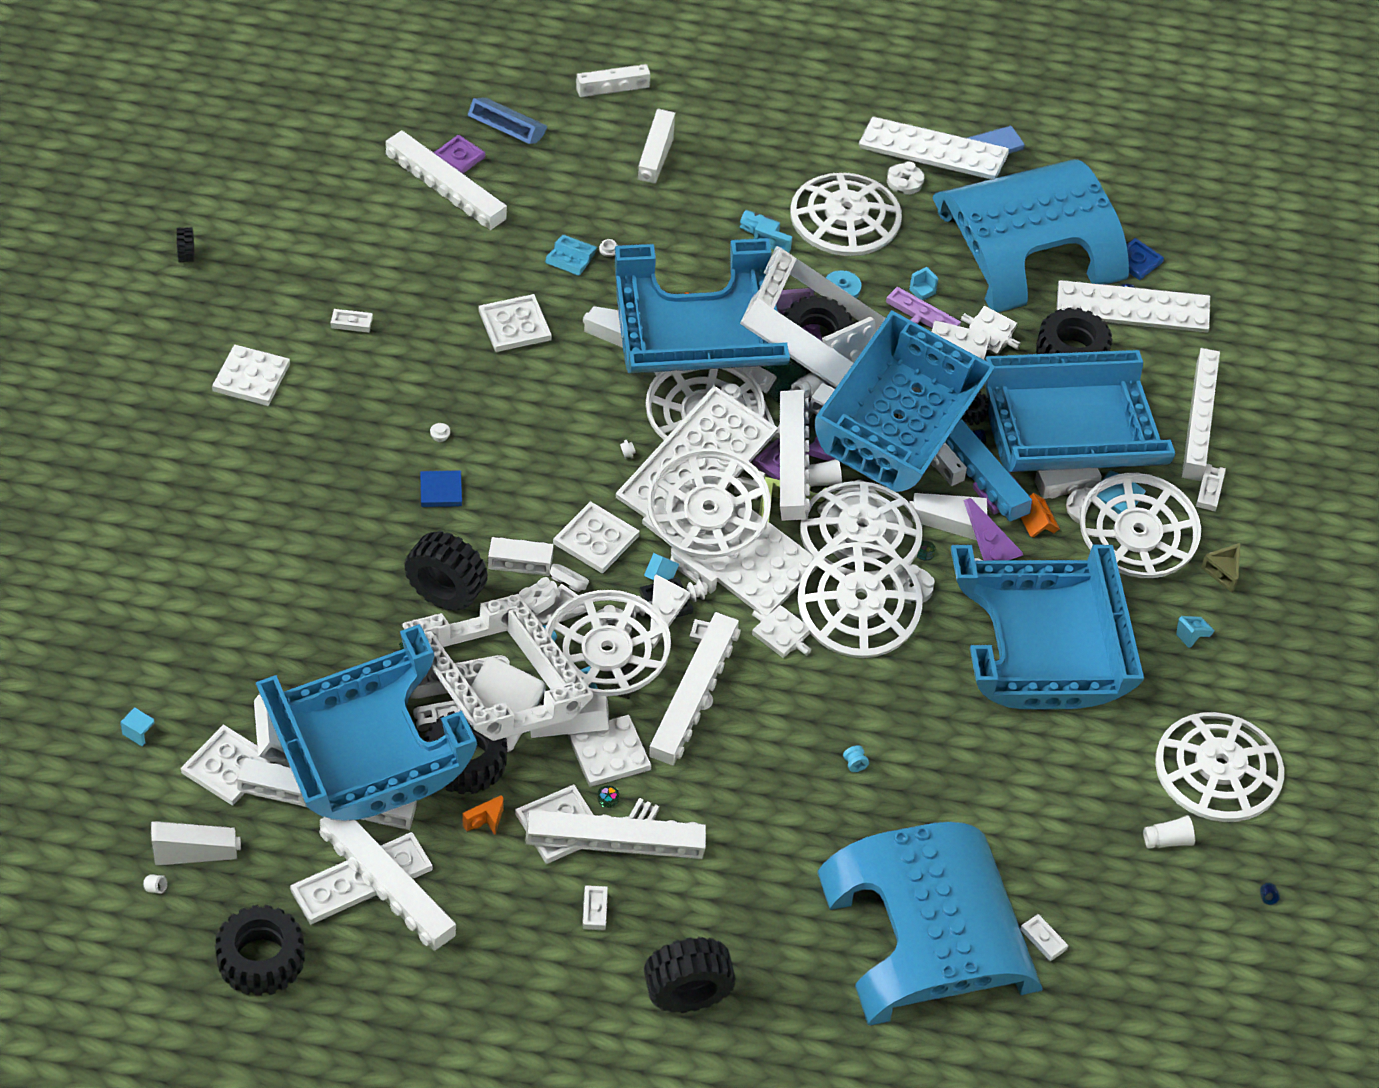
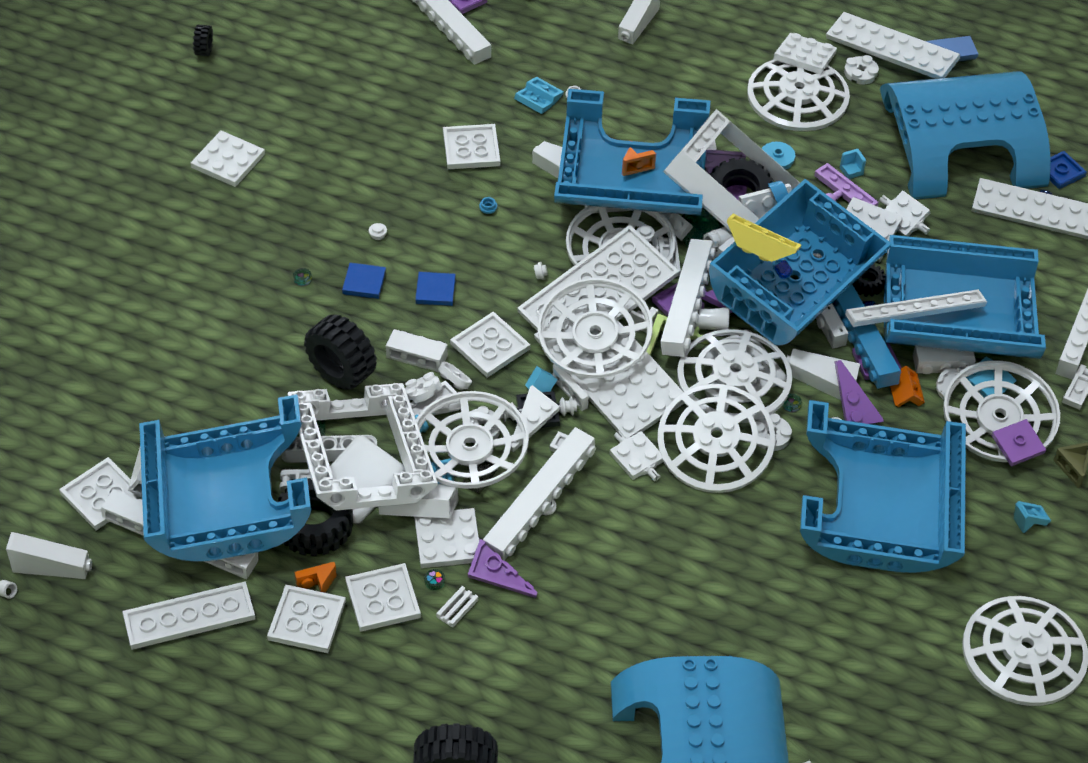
camera: 15 degrees right, 0 degrees up
(136, 725) = (32, 444): medium azure panel -> none
(265, 975) = (72, 642): black tyre -> none
(351, 320) = (328, 124): white plate -> none
(372, 495) = (302, 277): none -> clear green tile
(389, 881) = (209, 623): white brick -> none
(487, 860) = (306, 618): none -> white plate
(520, 485) = (435, 288): none -> blue tile
(551, 386) = (488, 205): none -> dark azure plate
(595, 907) = (392, 680): white plate -> none
(615, 834) = (428, 615): white brick -> none
(665, 775) = (491, 569): none -> medium lavender wing
(704, 316) = (639, 162): none -> orange slope
(765, 227) = (720, 98): medium azure plate -> none
(843, 168) = (805, 53): none -> white plate
(856, 758) = (673, 582): medium azure wheel -> none
(864, 327) = (778, 189): none -> dark azure helmet
(865, 384) = (759, 240): none -> light yellow wedge
(893, 411) = (783, 269): none -> clear blue piece
(1030, 430) = (915, 308): none -> white tile
(1073, 325) = (982, 220): black tyre -> none
(1165, 555) = (1018, 442): none -> medium lavender plate
(1171, 833) = (958, 706): white plant -> none

